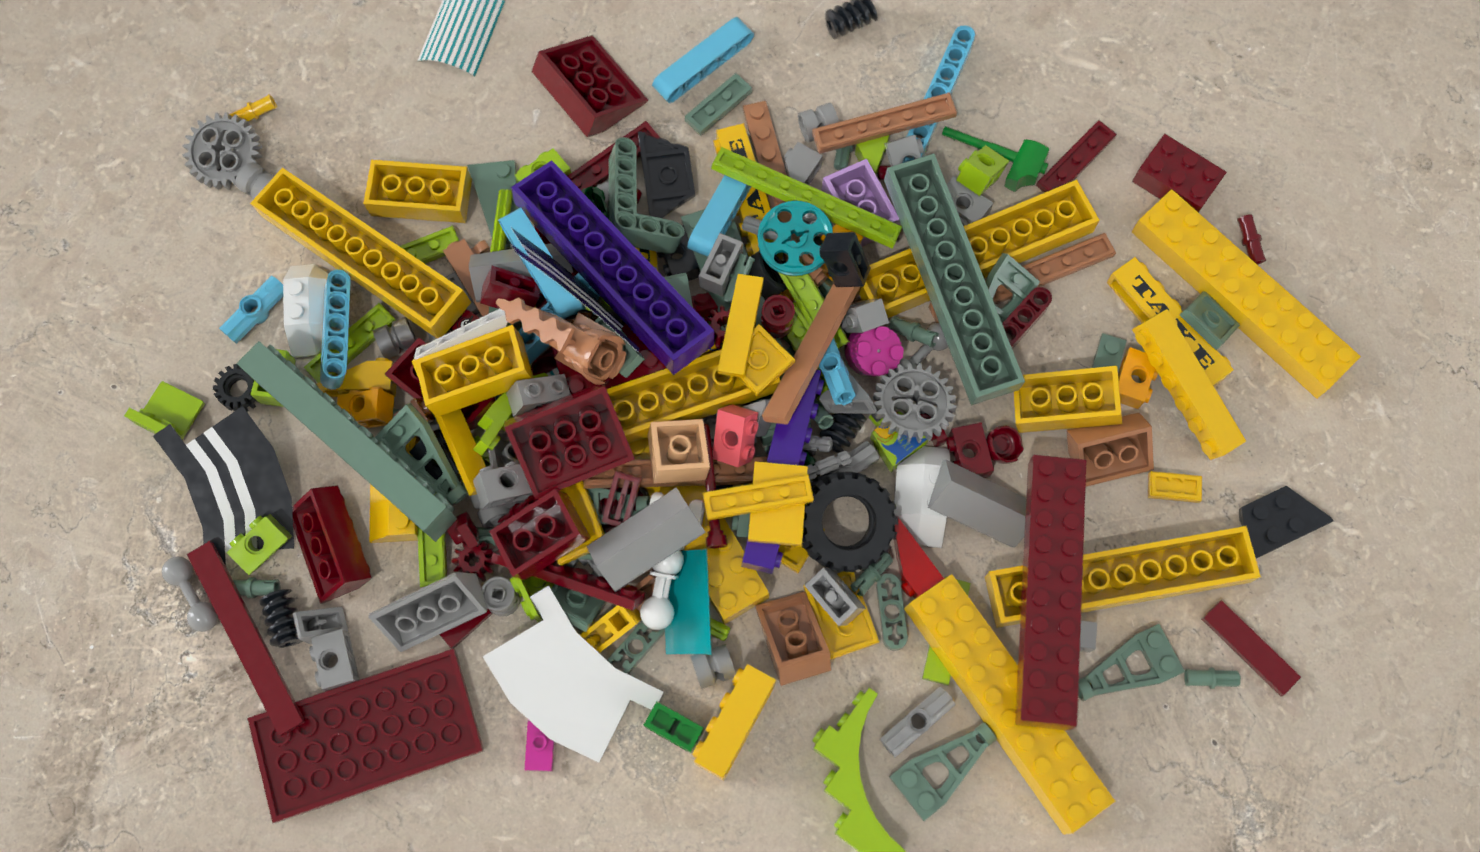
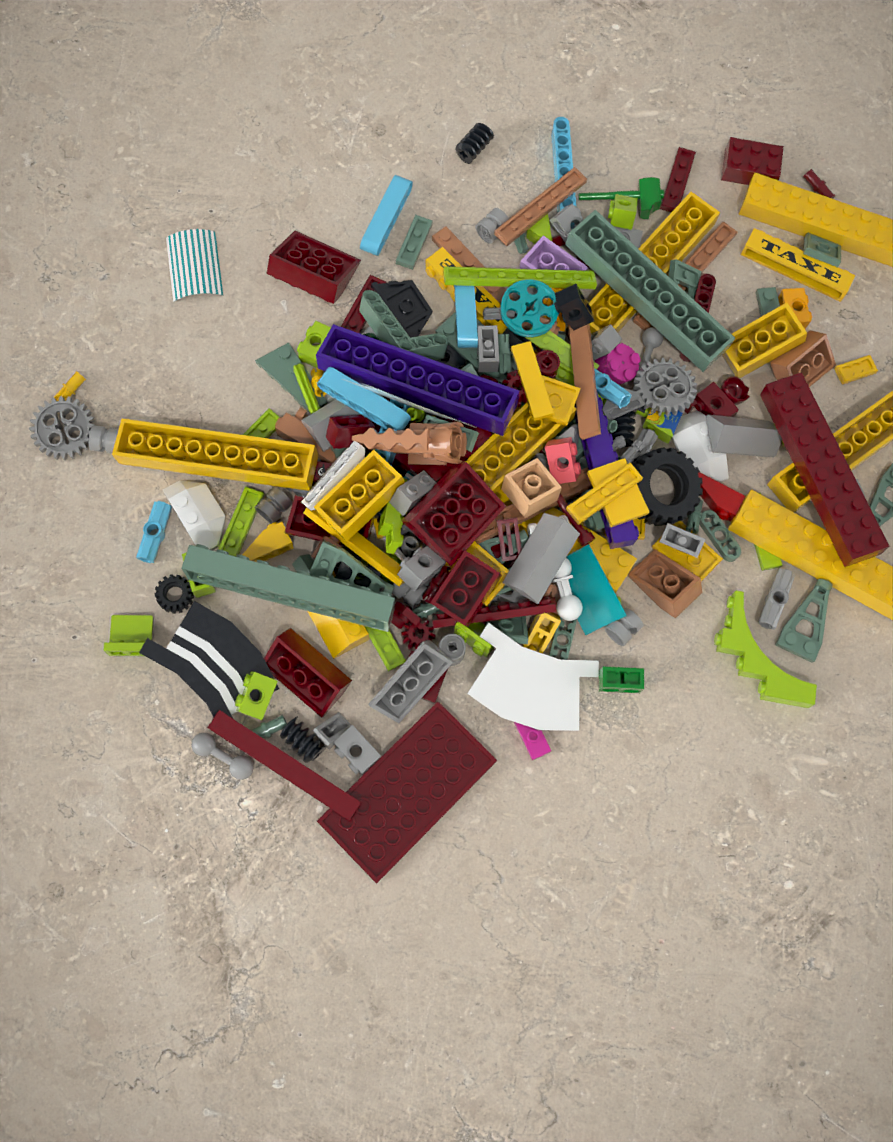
camera: 35 degrees left, 0 degrees up
(335, 339) = (229, 516): medium azure beam -> none
(368, 407) = (289, 556): light orange brick -> none
(418, 191) = (232, 393): yellow brick -> none
(735, 721) = (660, 655): yellow brick -> none
(802, 163) = (496, 256): light grey slope -> none
(913, 331) = (638, 340): sand green pin -> none
(1188, 385) = (833, 297): yellow brick -> none

